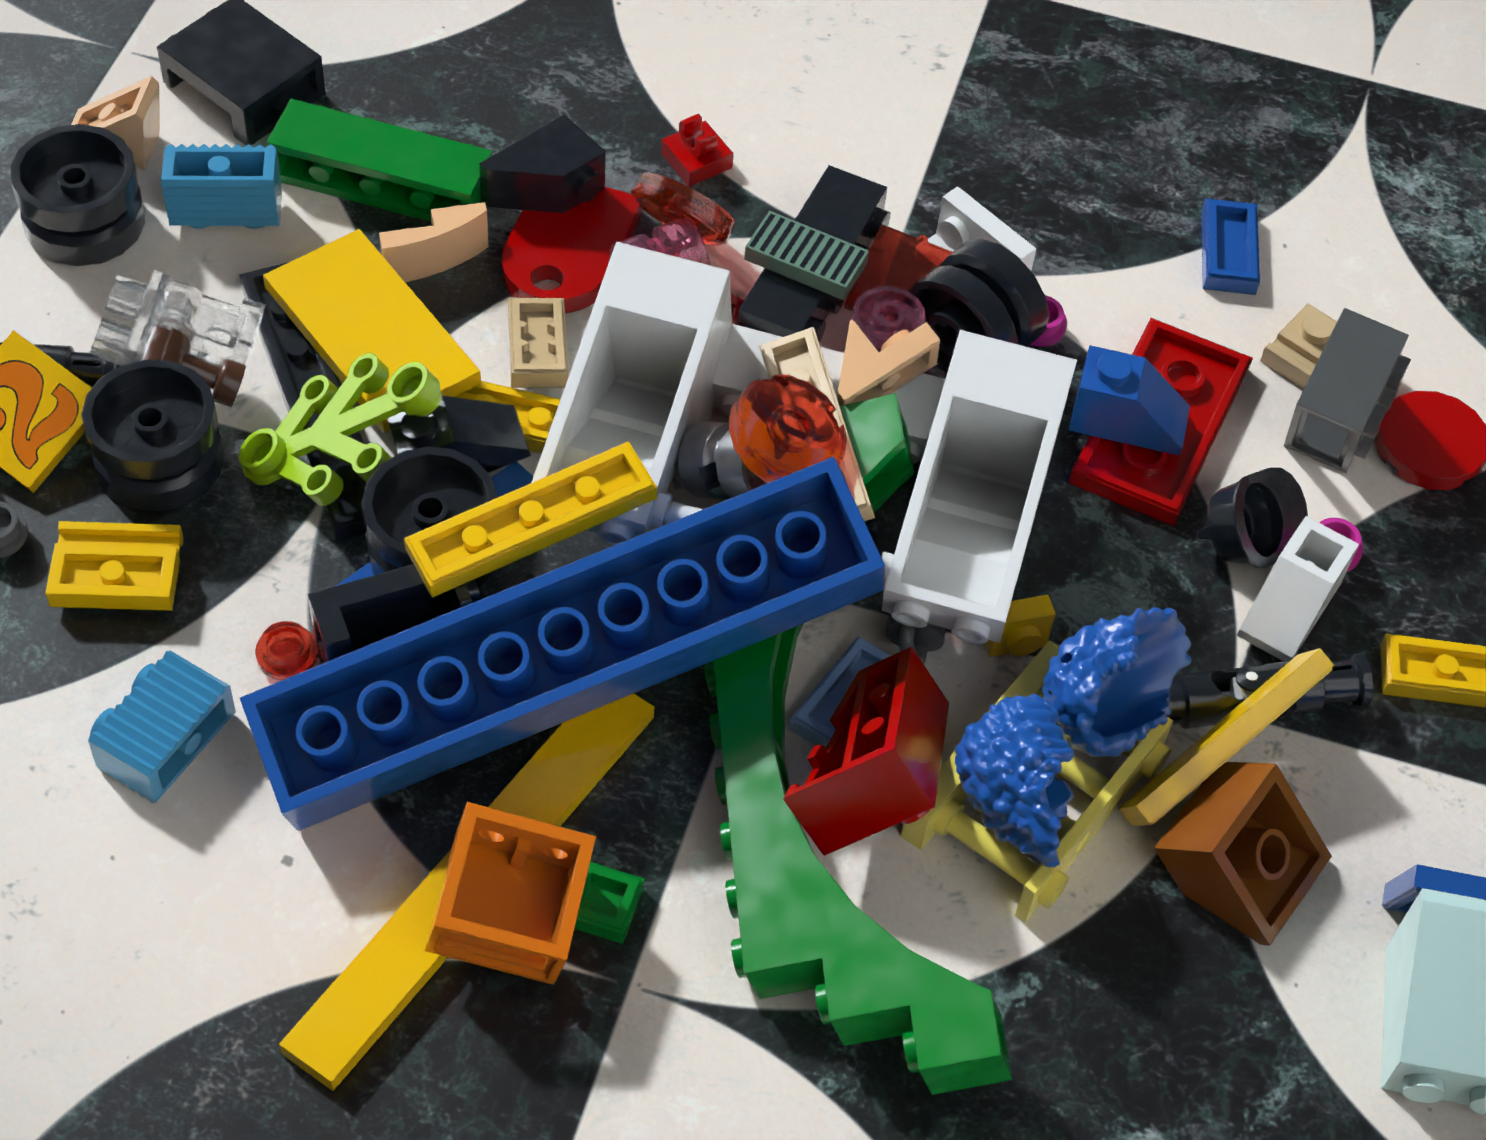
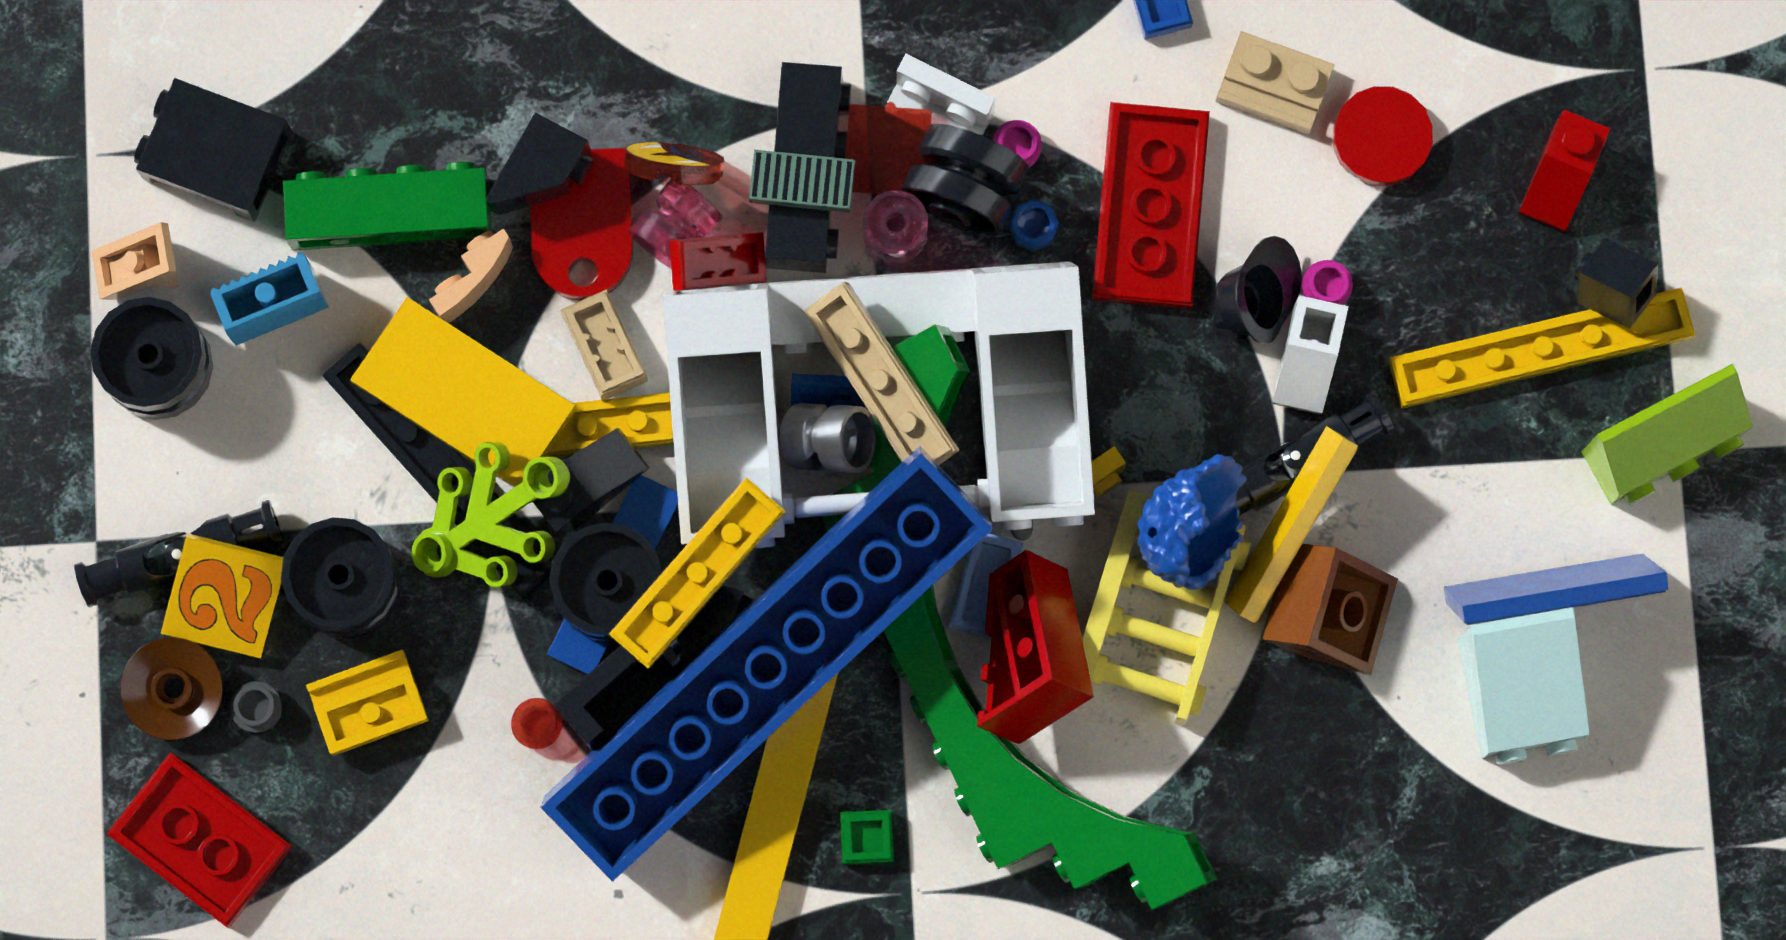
camera: 15 degrees left, 25 degrees up
(160, 725) = (475, 829): dark azure brick -> none
(181, 327) = (299, 473): clear hips -> none
(511, 893) = (806, 878): orange piece -> none
(696, 151) = (653, 70): red tile -> none
(784, 427) = (867, 417): clear red tile -> none
(877, 374) = (902, 305): light nougat slope -> none
(1010, 772) = (1144, 638): blue piece -> none
(1128, 402) = (1122, 221): blue slope -> none
(1349, 391) = (1300, 146): dark grey piece -> none

